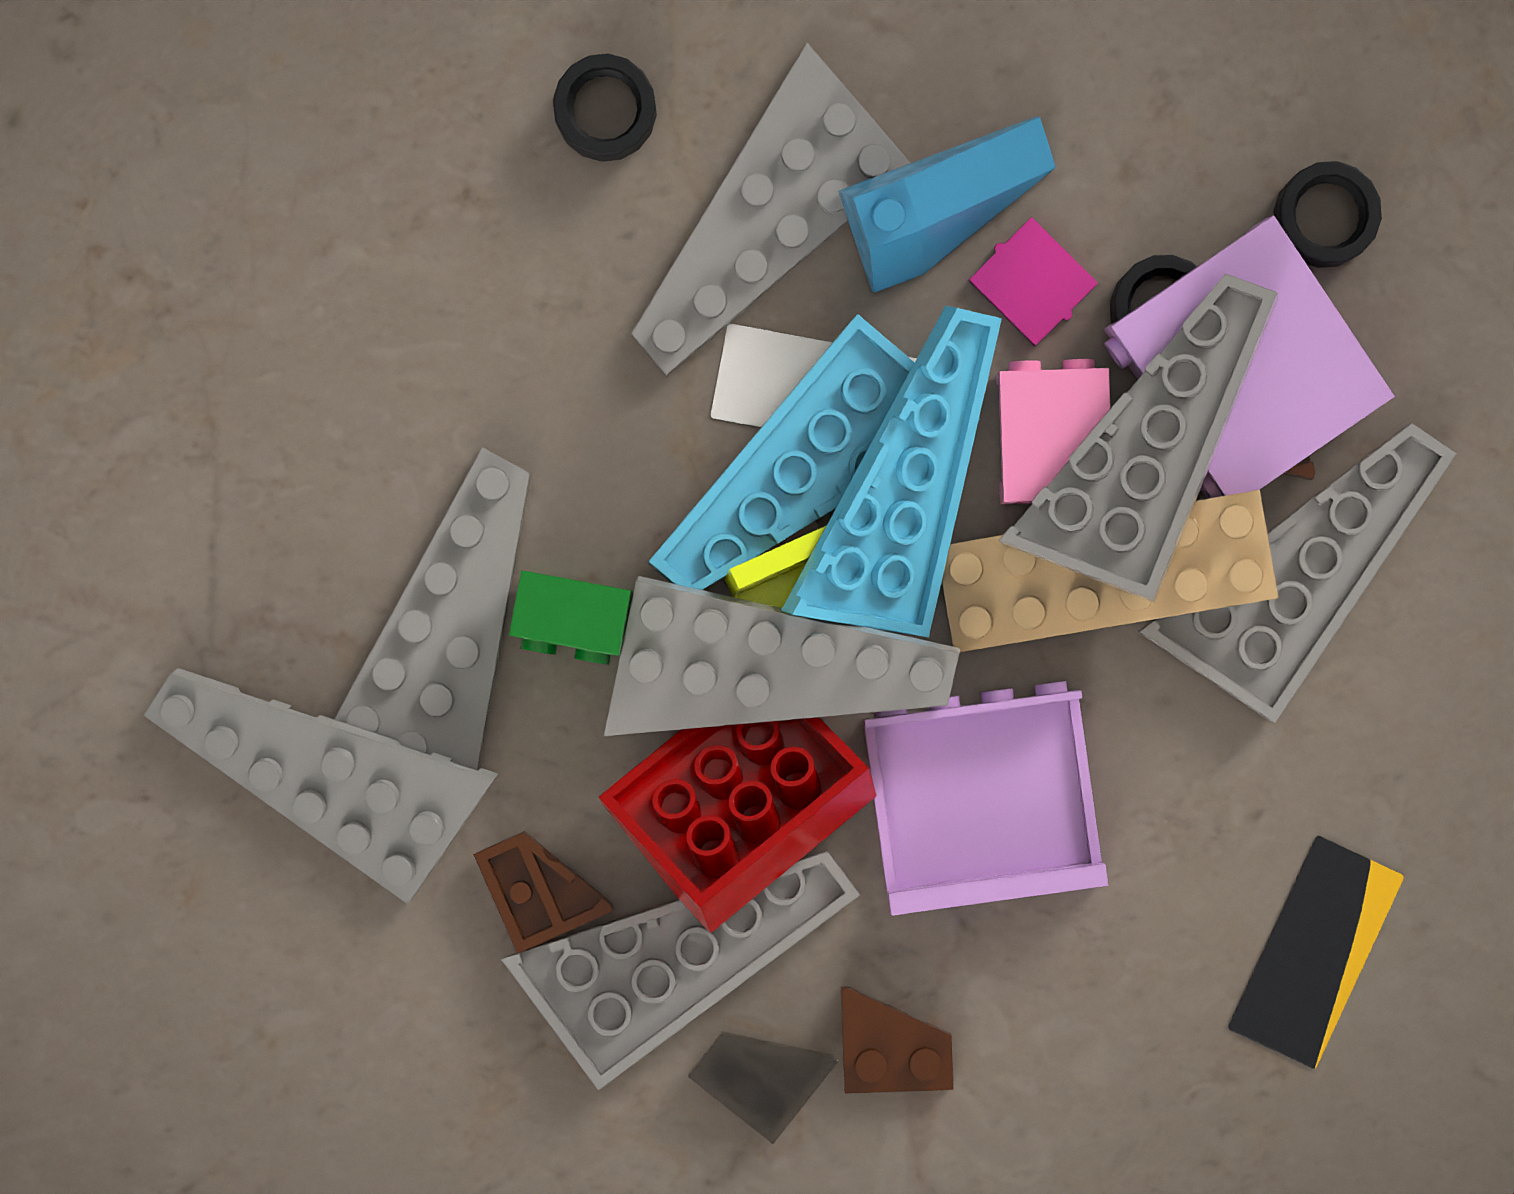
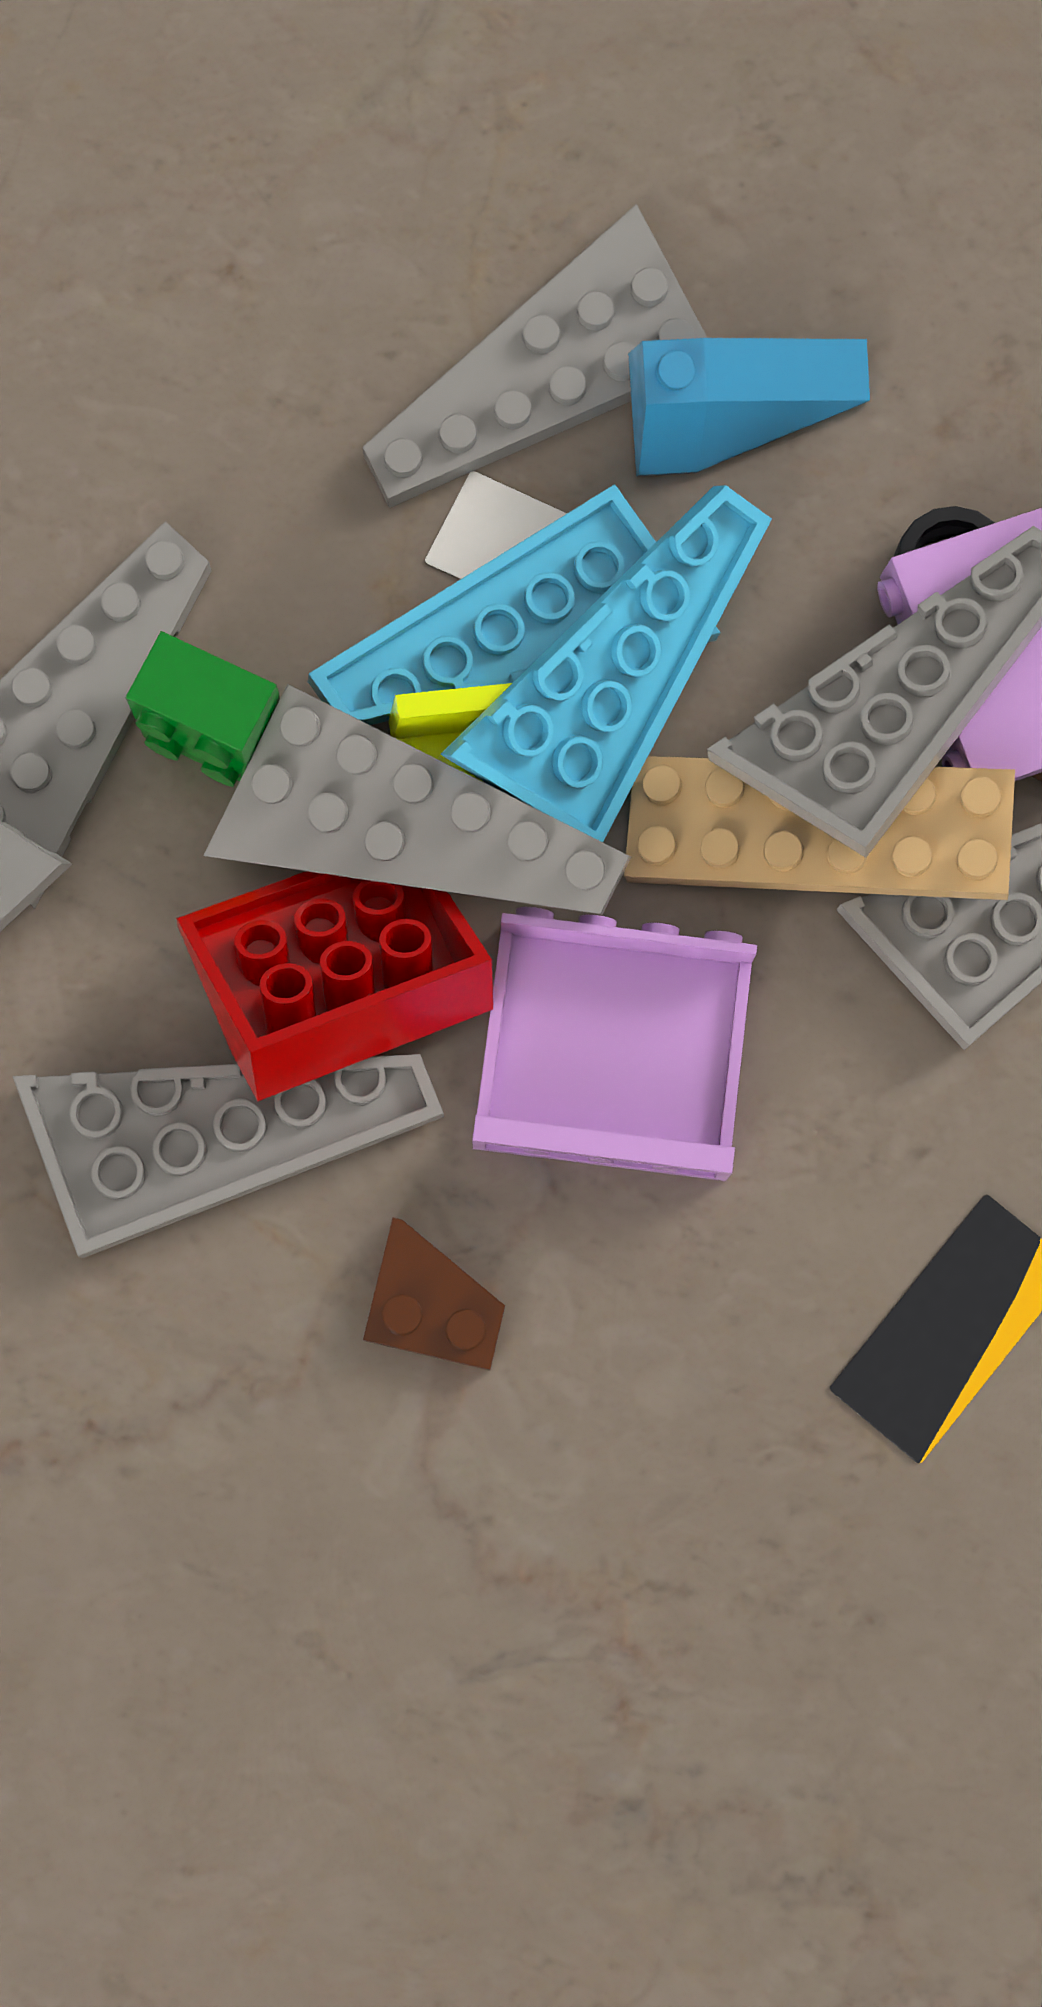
camera: 15 degrees right, 10 degrees down
(537, 891) = (77, 1014): reddish brown wing -> none
(601, 66) = (394, 172): black tyre -> none
(761, 1079) = (270, 1297): clear smoke wing -> none
(1033, 281) = (815, 511): dark pink piece -> none
(1045, 421) = (787, 641): bright pink panel -> none

